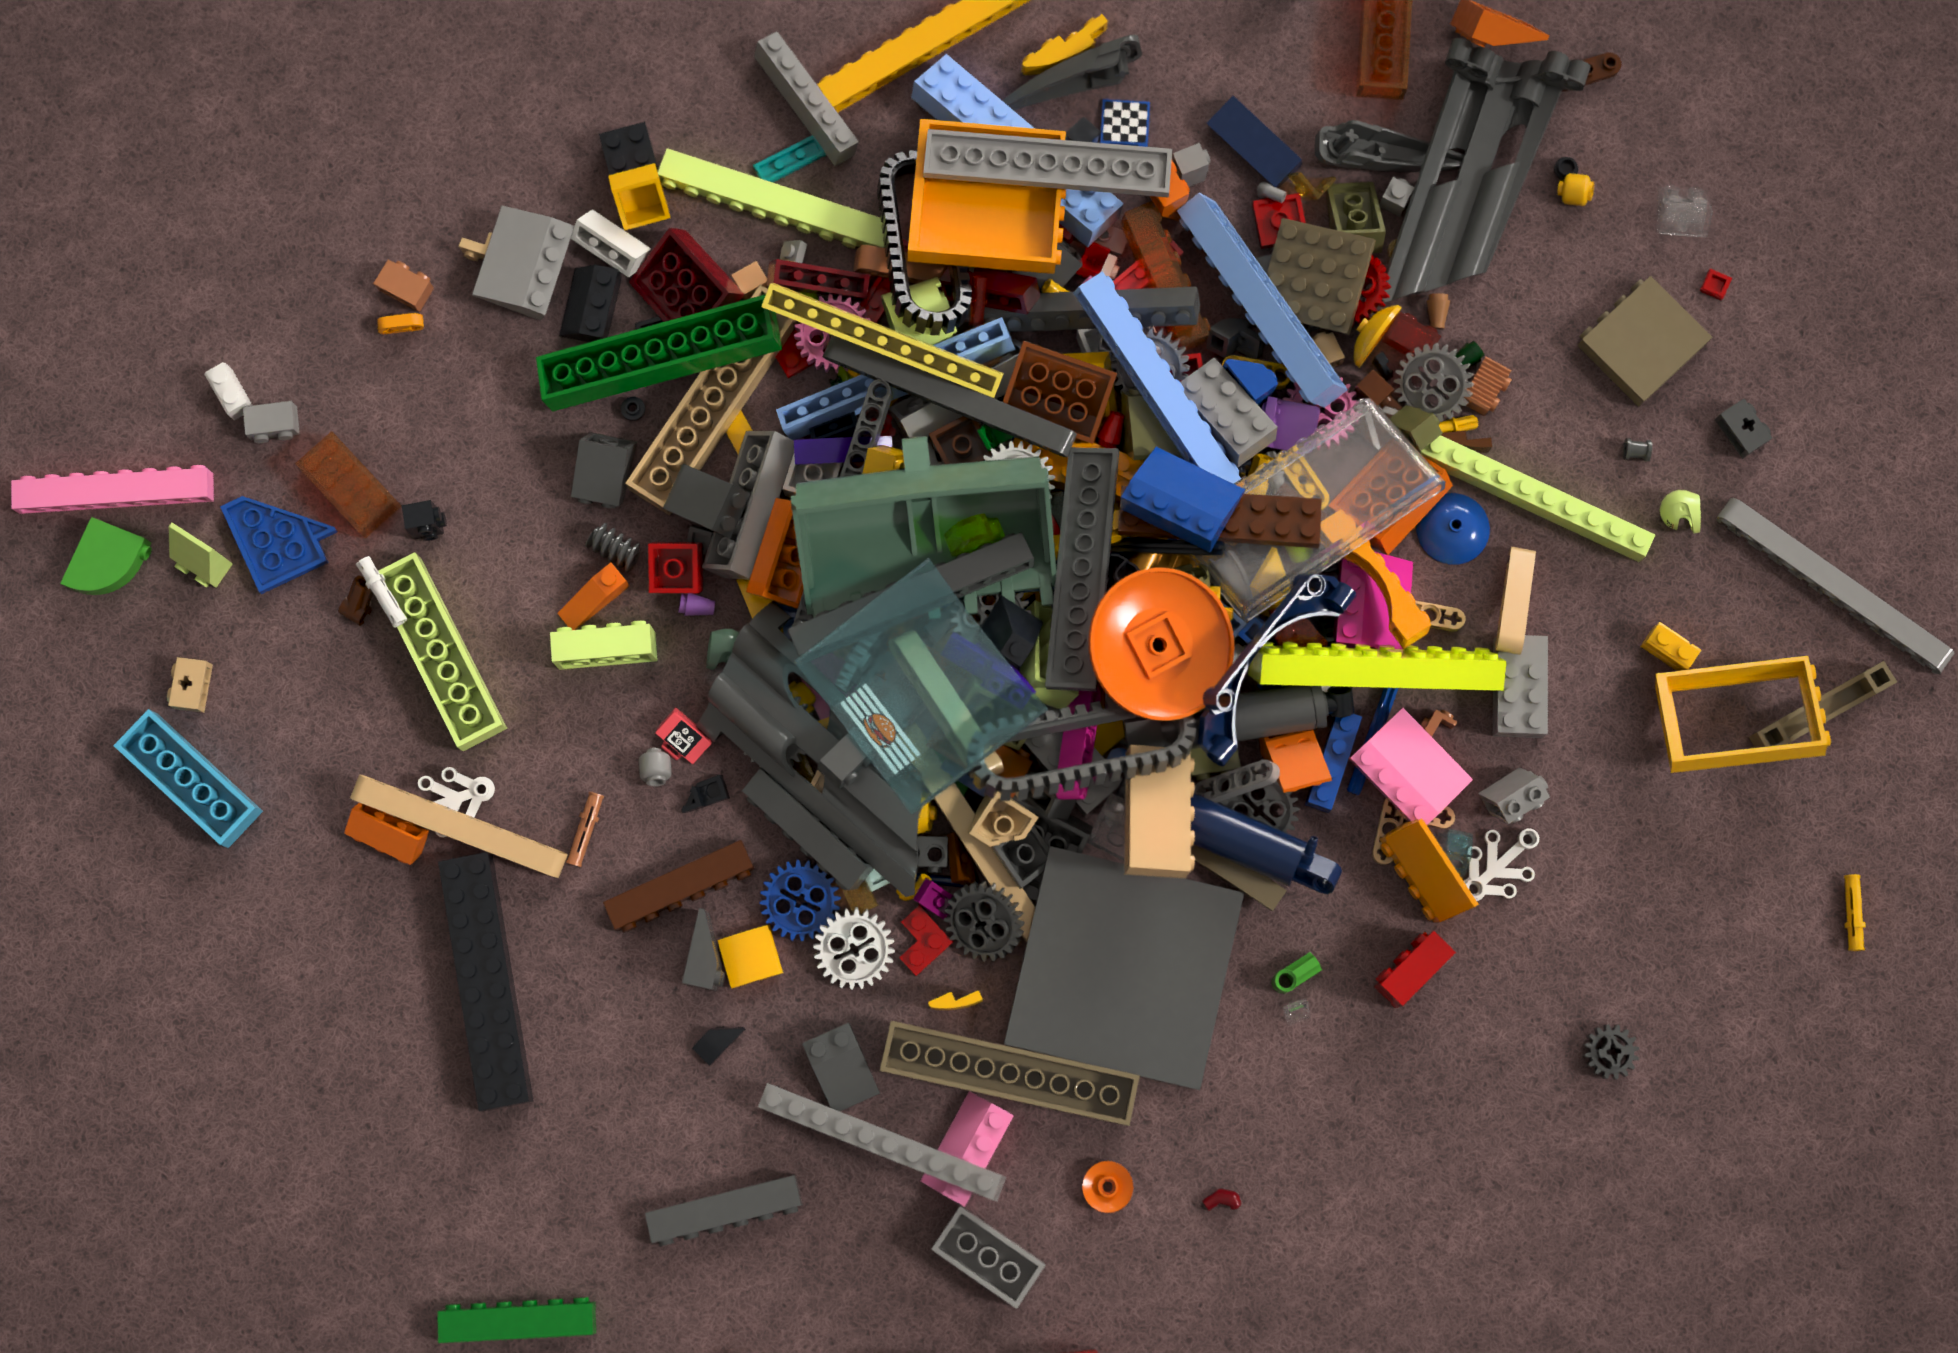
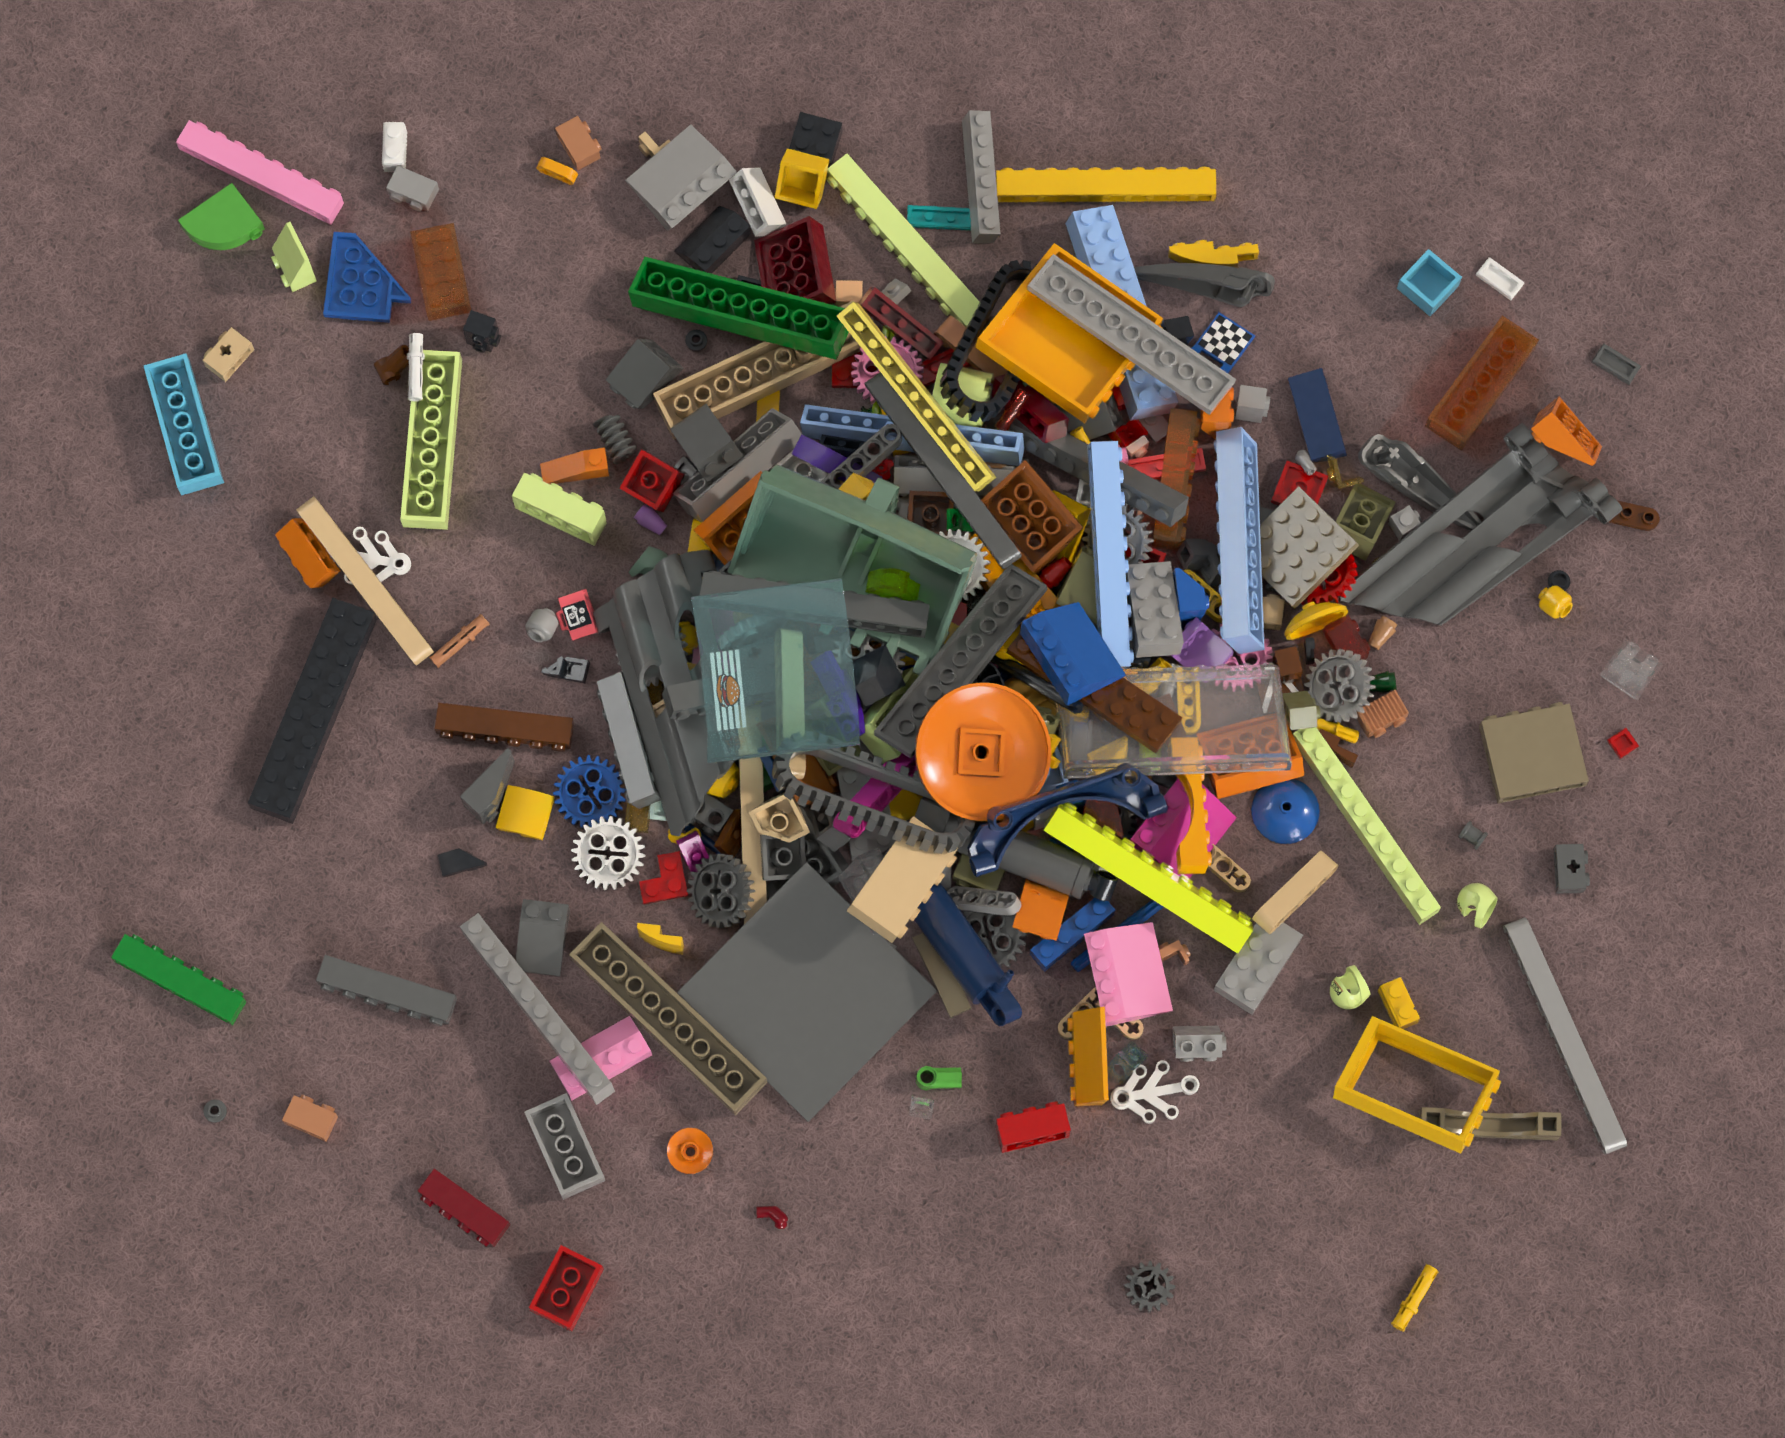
camera: 30 degrees right, 5 degrees down
(1626, 660) = (1355, 983): none -> yellowish green helmet

